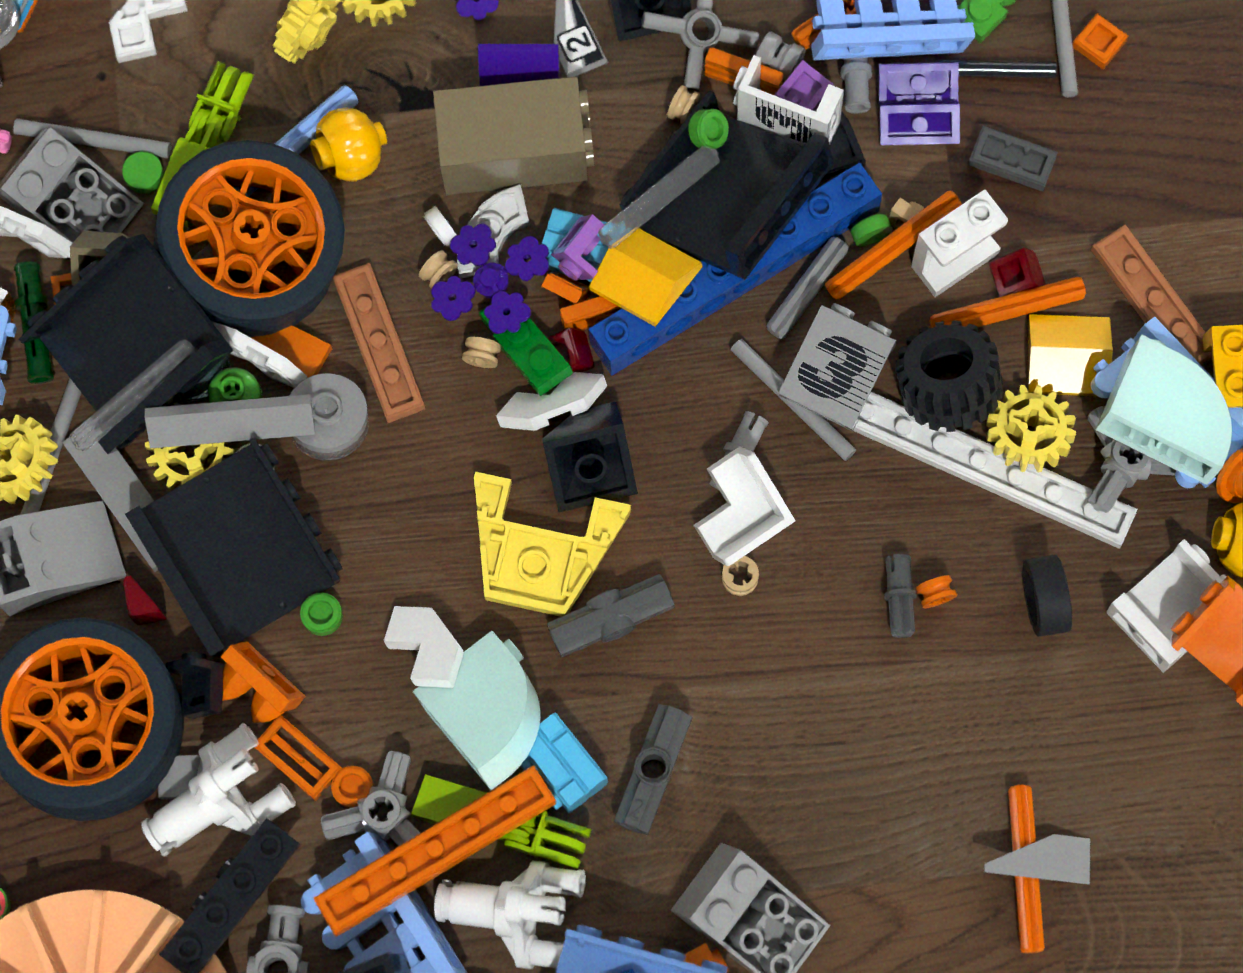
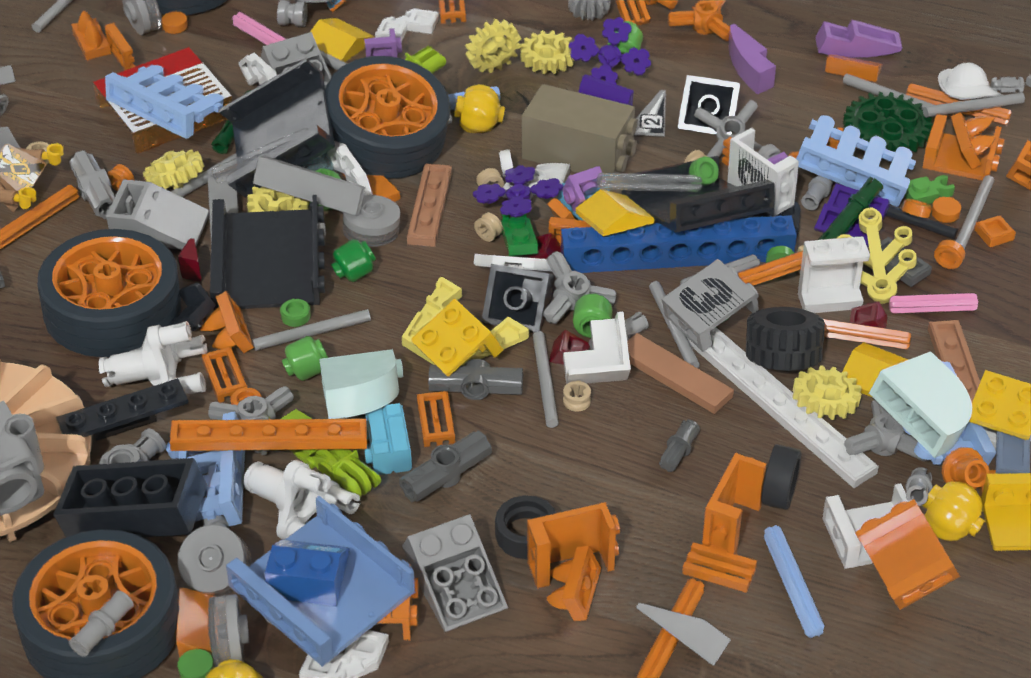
camera: 25 degrees right, 30 degrees down
(68, 88) = (339, 38): none -> yellow slope
(151, 88) = (383, 45): none -> medium lavender bracket
(347, 499) = (353, 260): none -> green head
(359, 632) = (311, 329): none -> light grey bar
(386, 690) = (304, 358): none -> bright green head
(438, 650) = (344, 342): white tile -> none
(563, 582) = (454, 338): none -> yellow bracket
(613, 723) = (438, 436): none -> orange tile
(664, 412) = (569, 288): none -> light grey bush
(687, 566) = (545, 379): none -> light grey bar
(688, 504) = (566, 343): none -> dark red slope
(695, 443) = (590, 308): none -> bright green head
(805, 778) = (516, 509): none -> black tyre
(835, 847) = (559, 534): none -> orange panel
(839, 478) = (678, 374): none -> nougat tile
(889, 842) = (580, 579): none -> orange tile
(924, 114) = (851, 212): none -> dark green pin
(936, 591) = (708, 459): orange bush -> none
(989, 173) = (879, 258): none -> light yellow plant
(992, 52) = (917, 208): none -> orange tile
(1009, 710) = (740, 485): none -> orange panel
(1026, 32) = (946, 209): none -> orange tile
(1031, 731) = (722, 563): none -> orange tile
(1068, 119) = (949, 254): none -> orange tile
(1082, 208) = (933, 303): none -> bright pink axle
(1120, 725) = (793, 581): none -> light blue axle
(1202, 527) = (919, 485): none -> light grey pin

